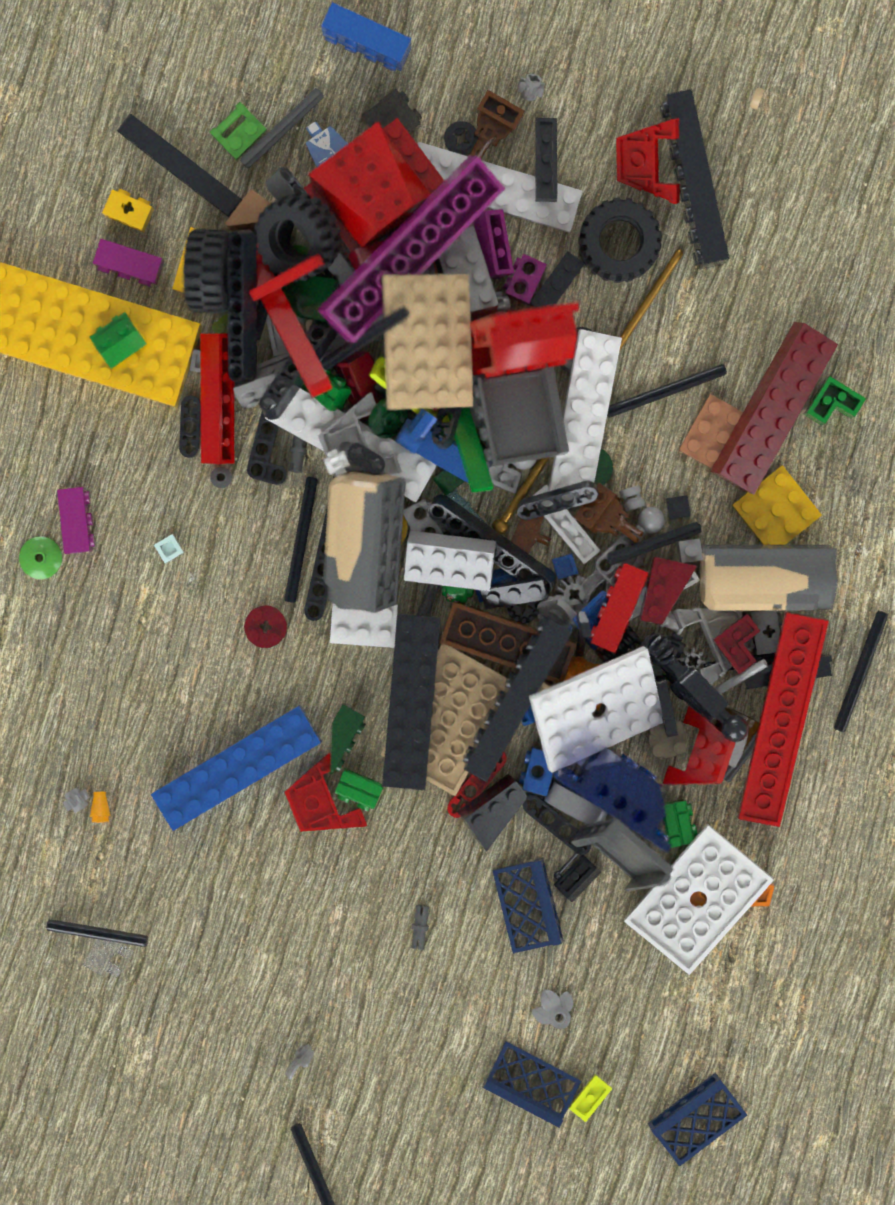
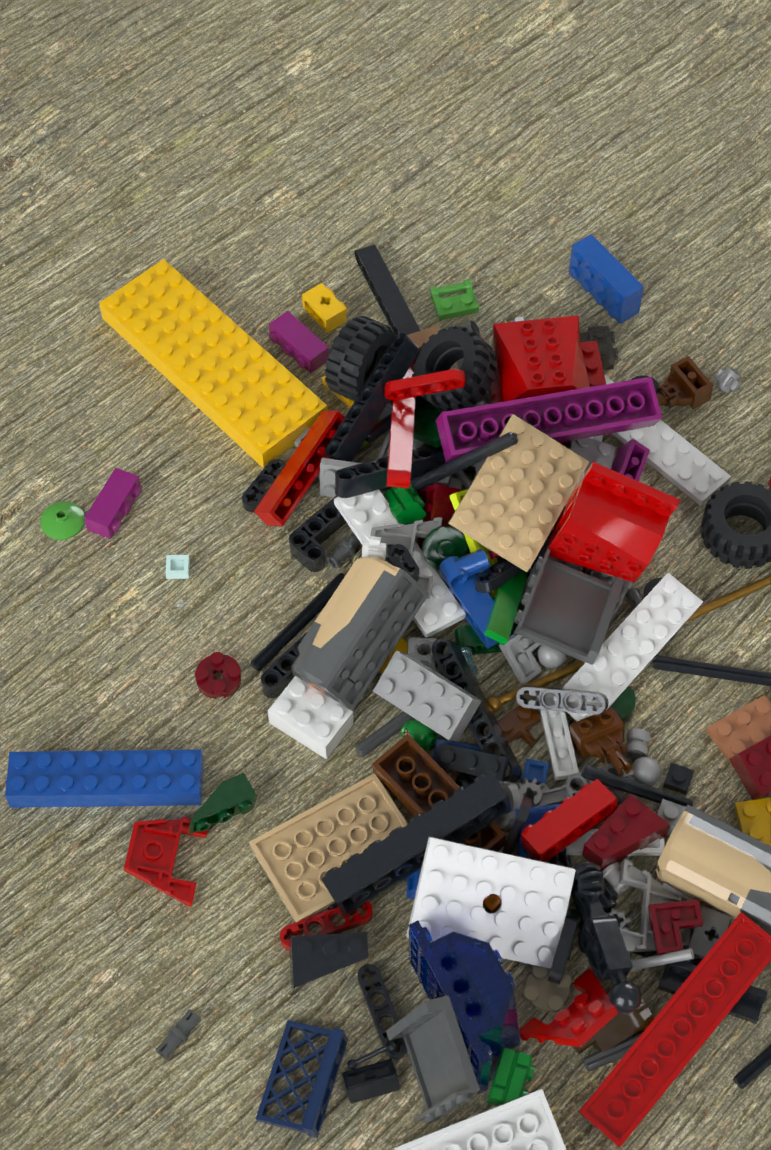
camera: 30 degrees right, 30 degrees down
(117, 340) = (248, 375): green brick -> none
(221, 484) = (263, 541): dark grey plate -> none
(282, 128) = (493, 313): dark grey axle -> none
(358, 789) = (207, 863): green brick -> none
(411, 702) = (308, 805): black brick -> none
(531, 783) = (389, 958): blue brick -> none
(546, 160) = (710, 435): black plate -> none
(558, 281) = (678, 533): black plate -> none
(574, 804) = (405, 989): light grey beam -> none

